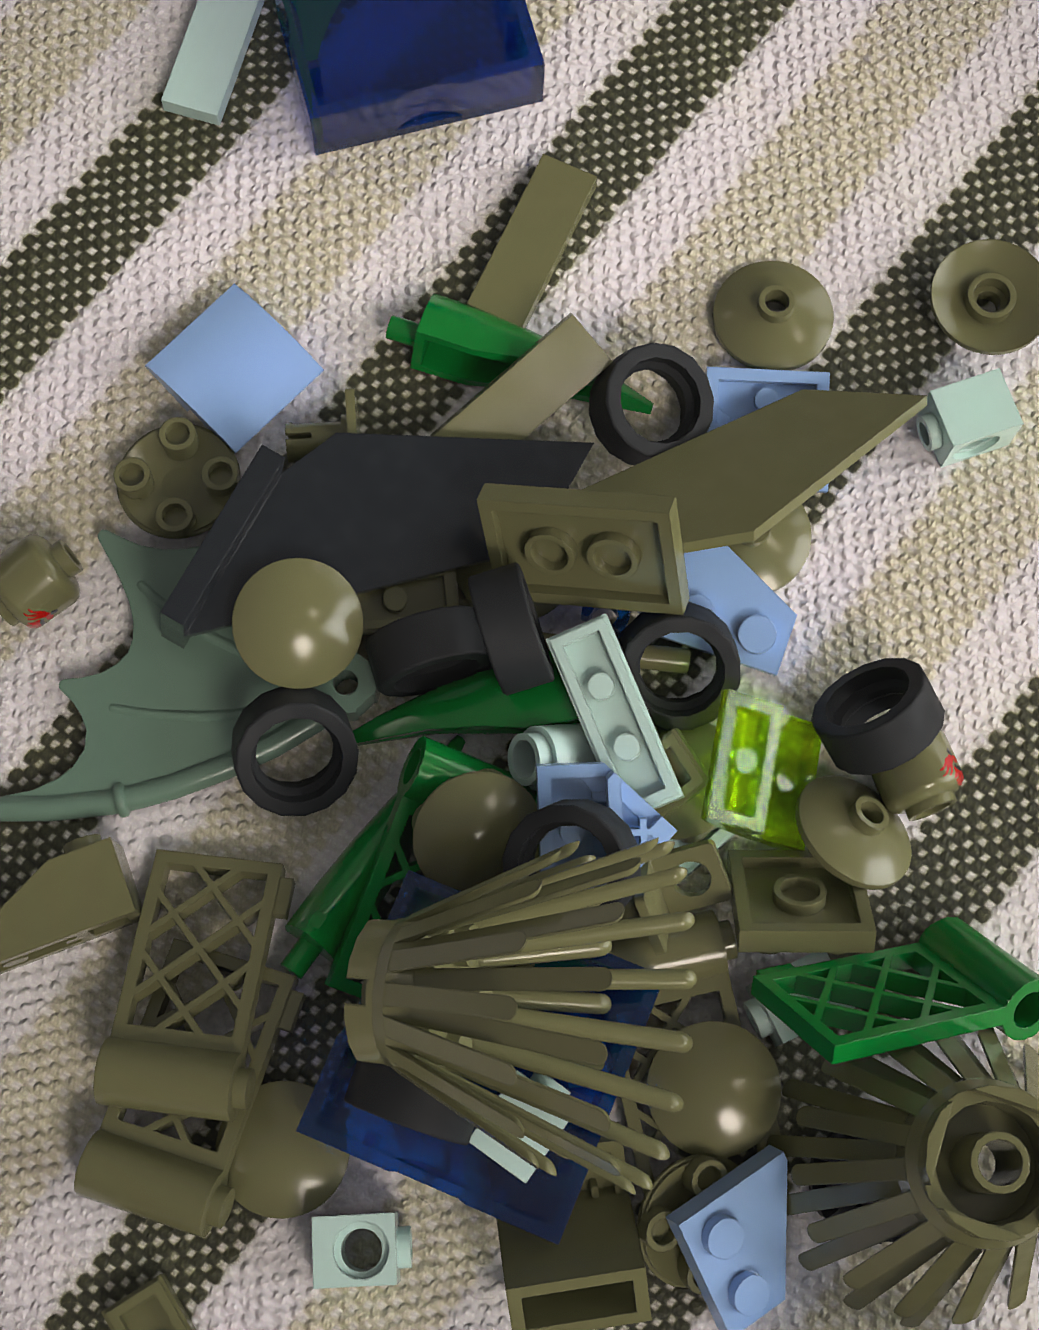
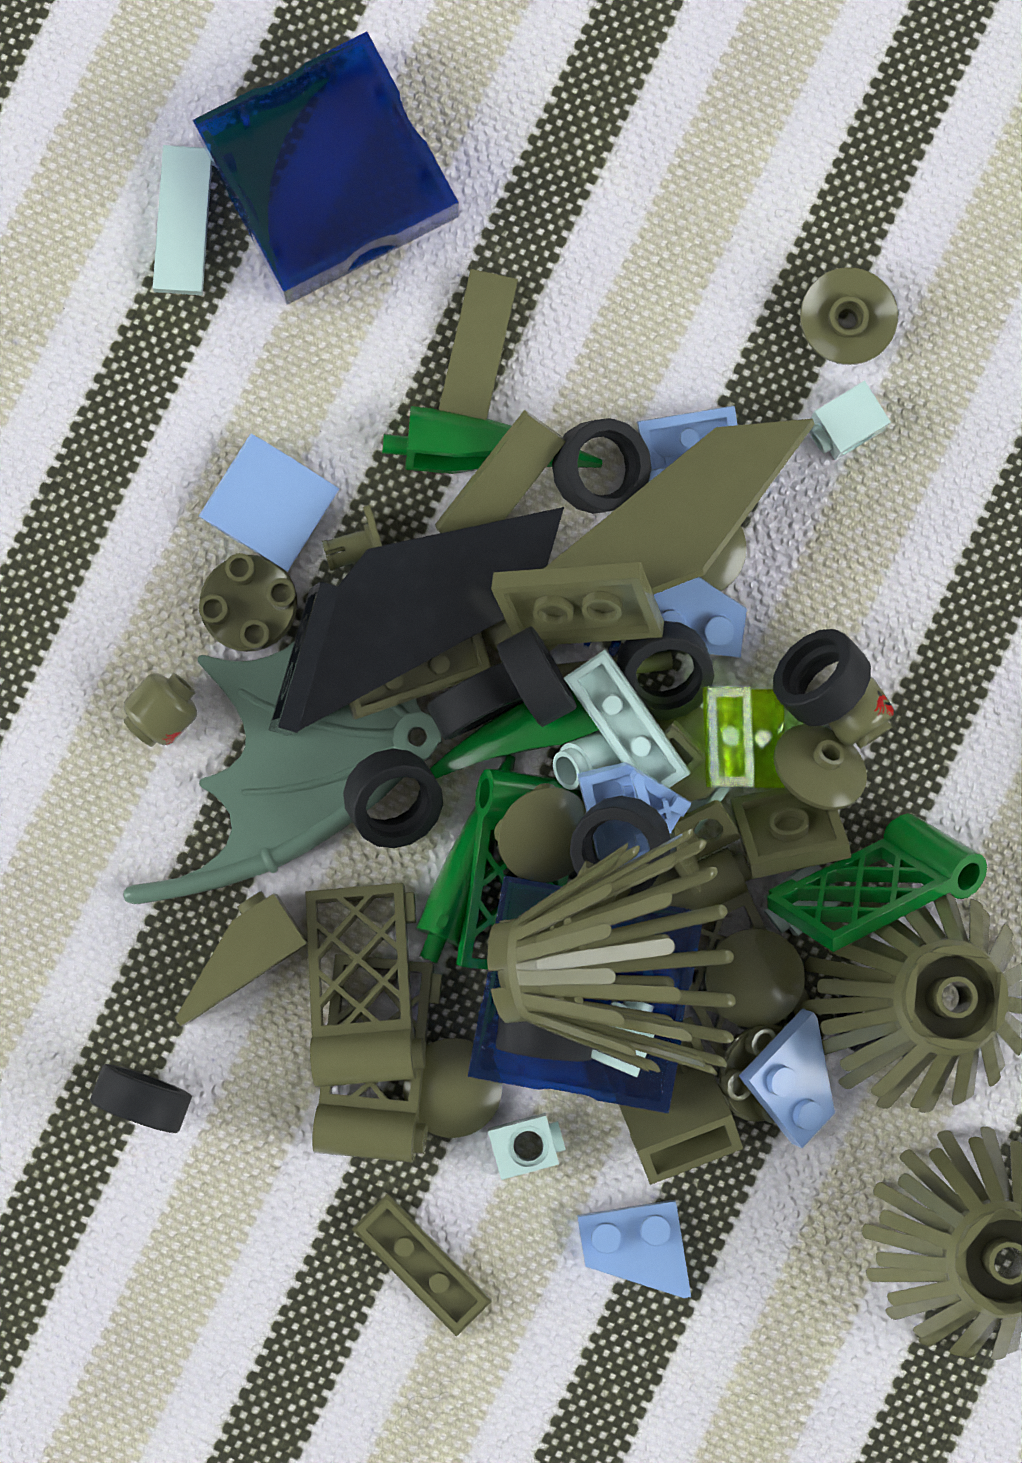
camera: 15 degrees left, 10 degrees up
(297, 623) = (375, 705): olive dish -> none
(767, 337) = (675, 386): olive dish -> none

